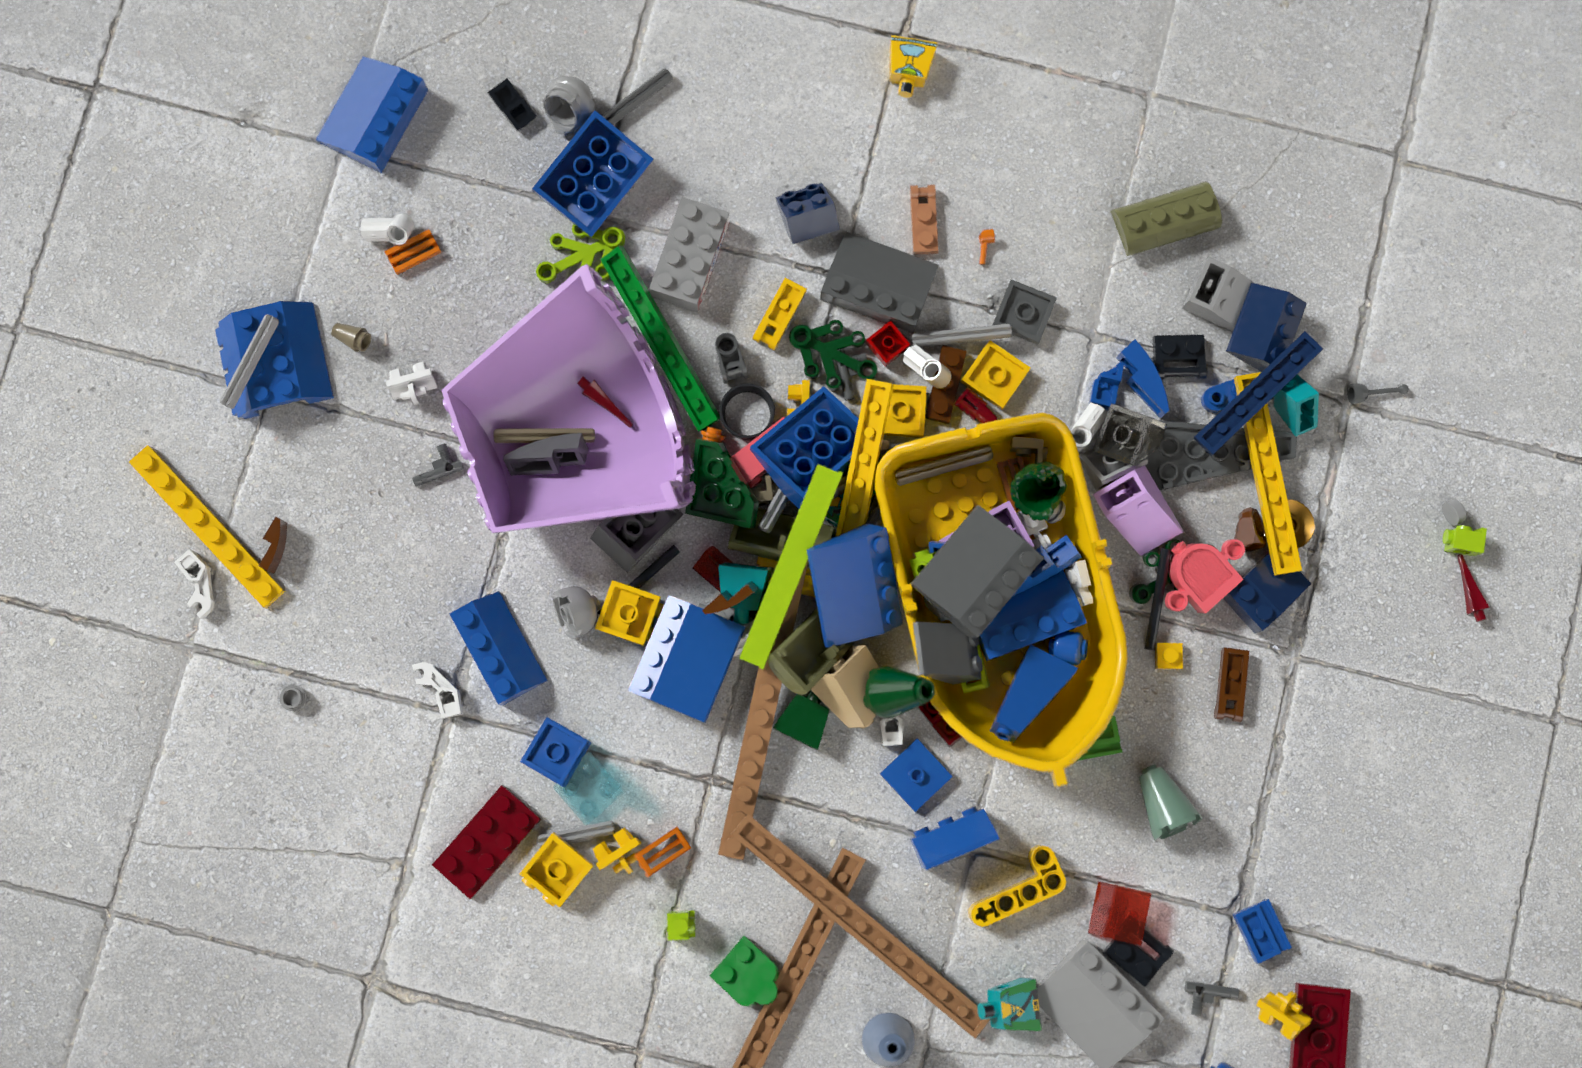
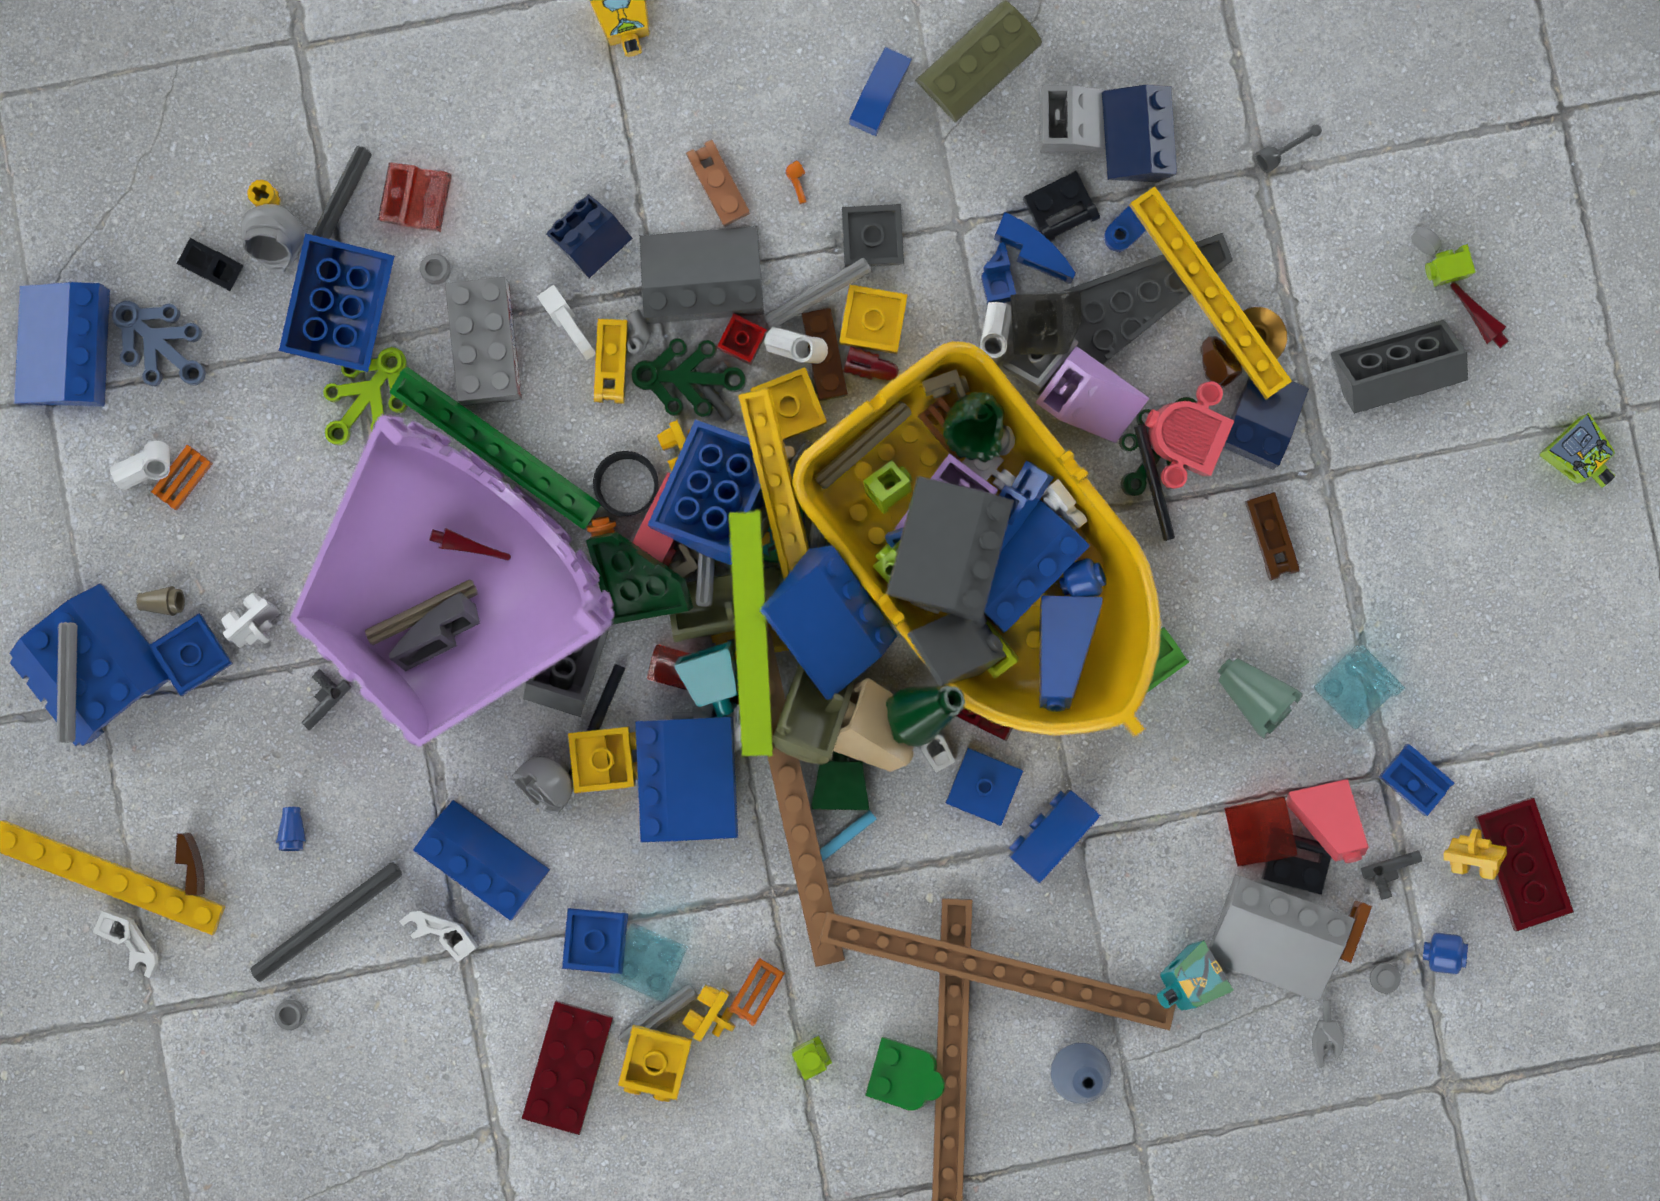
camera: 20 degrees left, 5 degrees up
(353, 387) = (190, 654): none -> blue plate
(355, 639) = (326, 922): none -> dark grey axle
(363, 557) = (291, 830): none -> blue cone
(444, 140) = (155, 339): none -> sand blue plant
(579, 65) = (262, 186): none -> yellow bush
(679, 185) = (435, 269): none -> light grey tile
(689, 125) = (414, 197): none -> clear red slope
(725, 600) = (700, 700): reddish brown slope -> none
(731, 362) = (582, 436): dark grey piece -> none
(759, 262) = (563, 315): none -> white piece
(791, 762) = (847, 834): none -> medium azure bar
(811, 304) = (640, 333): none -> light grey arm
(949, 504) = (888, 476): none -> lime brick
(1015, 891) = (1142, 858): yellow beam -> none
(1079, 207) = (880, 91): none -> blue slope
(1169, 656) = (1192, 536): yellow plate -> none
(1171, 1016) = (1360, 912): none -> dark orange tile
(1180, 929) = (1331, 818): none -> coral slope
(1248, 834) = (1358, 686): none -> clear light blue bracket
(1258, 393) = (1162, 212): dark blue plate -> none
(1298, 406) = (1207, 202): teal torso -> none
(1392, 599) = (1400, 366): none -> dark grey slope
(1506, 732) = (1581, 452): none -> torso

